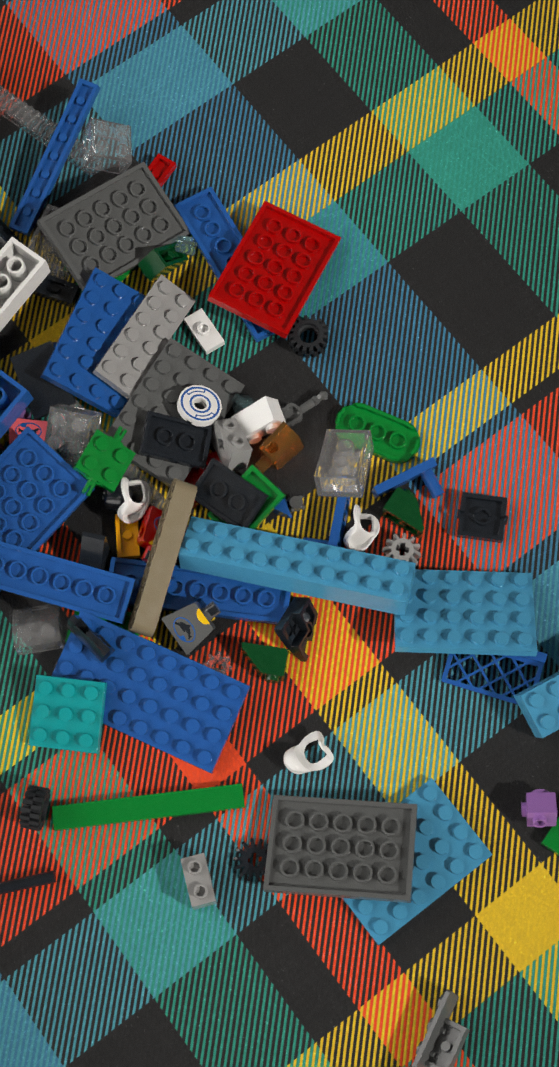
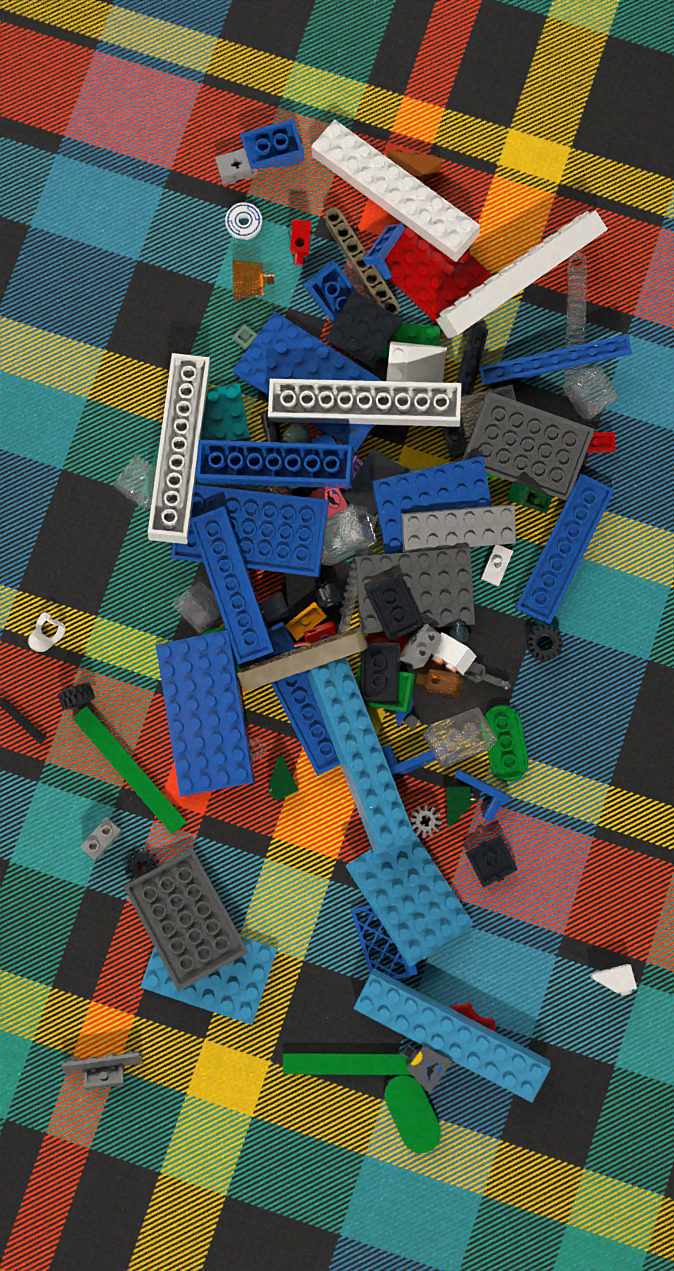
camera: 55 degrees right, 10 degrees up
(67, 714) = (153, 671): teal plate -> none
(93, 641) = (209, 658): black slope -> none
(104, 461) = (340, 570): green plate -> none
(131, 511) = (321, 613): white piece -> none
(186, 245) = (553, 504): clear light blue plate -> none
(191, 624) = (270, 711): dark grey torso -> none
(201, 395) = (441, 601): white tile -> none
(274, 269) = (578, 583): red plate -> none
(295, 757) = (226, 848): white piece -> none
(297, 626) = (321, 784): black slope -> none
(356, 536) = (413, 783): white piece -> none
(540, 808) = (304, 1037): medium lavender brick -> none

